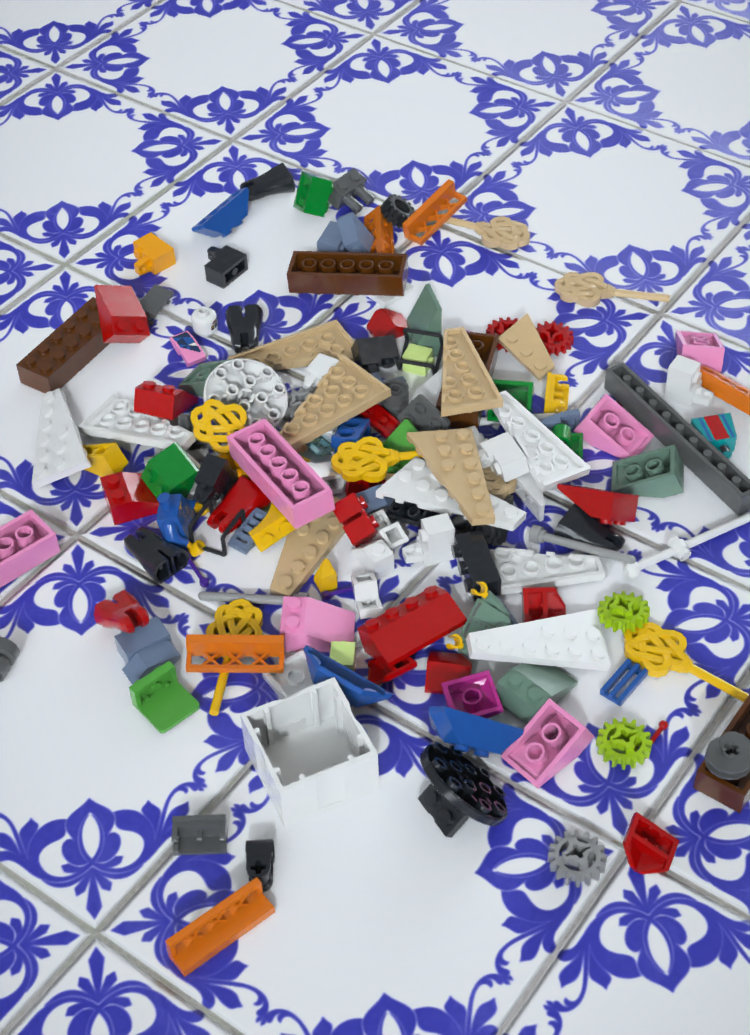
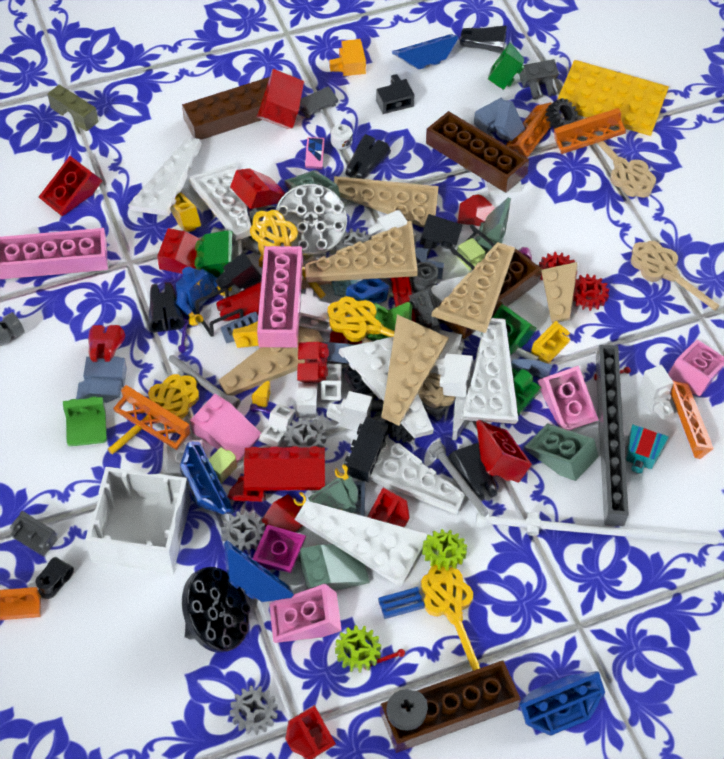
camera: 30 degrees right, 10 degrees up
(399, 587) = (295, 434): none -> light grey gear
(417, 704) = (242, 523): none -> light grey gear
(422, 177) = (601, 90): none -> yellow plate

